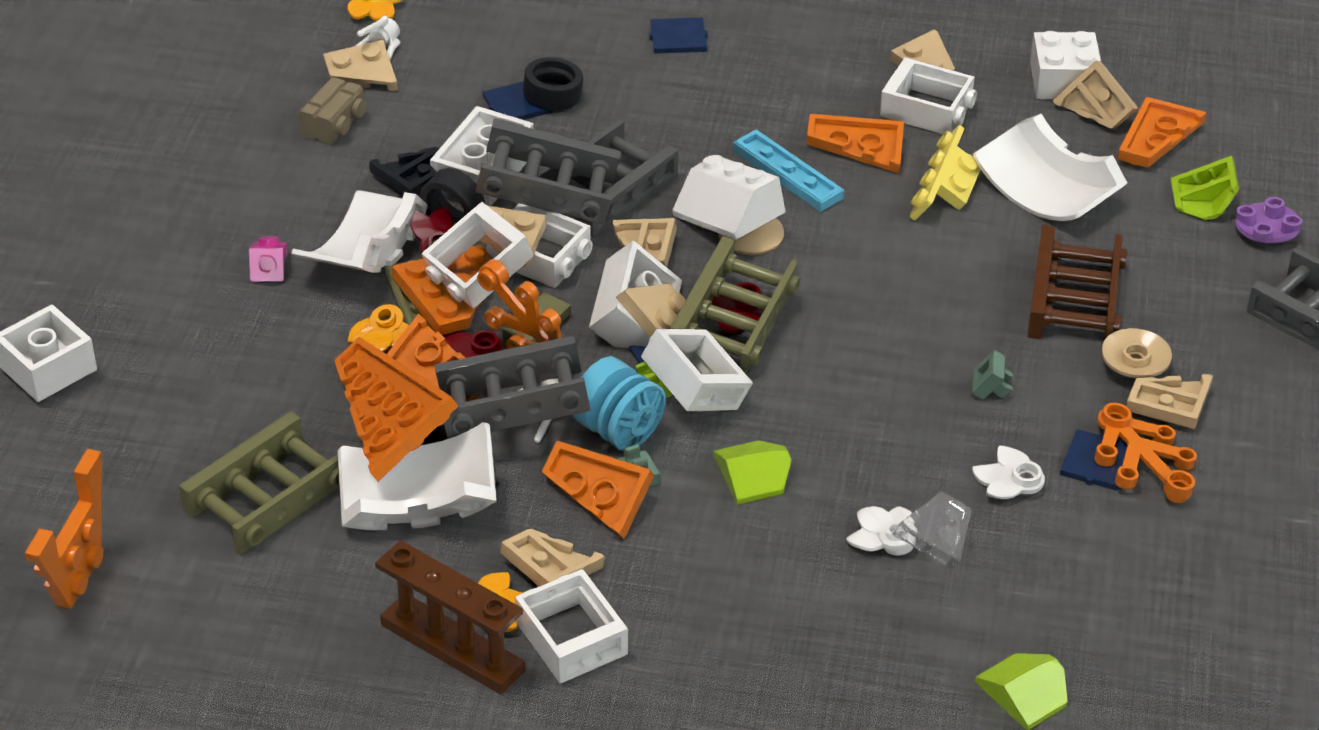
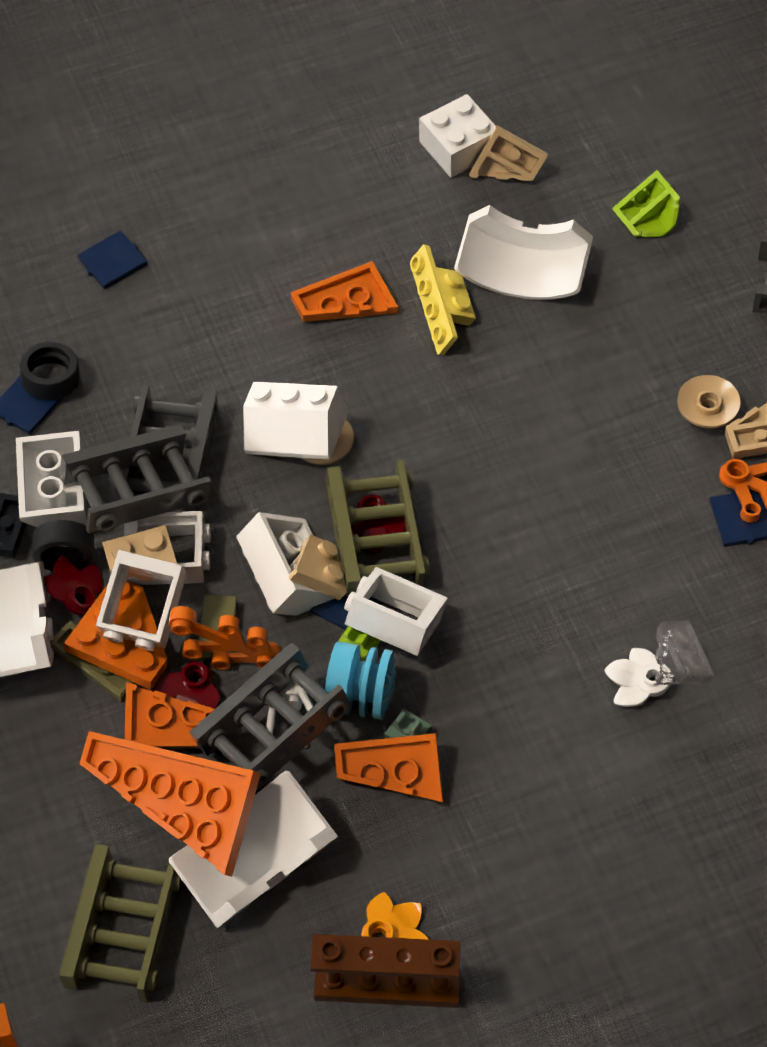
camera: 30 degrees left, 15 degrees up
(379, 332) = (97, 716): light orange plate -> none
(547, 558) = (406, 861): tan wing -> none
(585, 651) = (486, 888): white window -> none
(651, 234) = (247, 494): tan wing -> none
(754, 470) = (497, 675): lime slope -> none
(792, 171) = (308, 357): medium azure tile -> none
(924, 49) = (337, 182): tan wing -> none
(931, 81) = (369, 205): white window -> none
(991, 376) = (615, 484): sand green tile -> none
(1010, 475) = (688, 570): white plate -> none
(1046, 292) = (600, 379): reddish brown fence -> none
(1158, 130) = (571, 166): orange wing -> none
(1268, 221) = (714, 215): medium lavender dish -> none

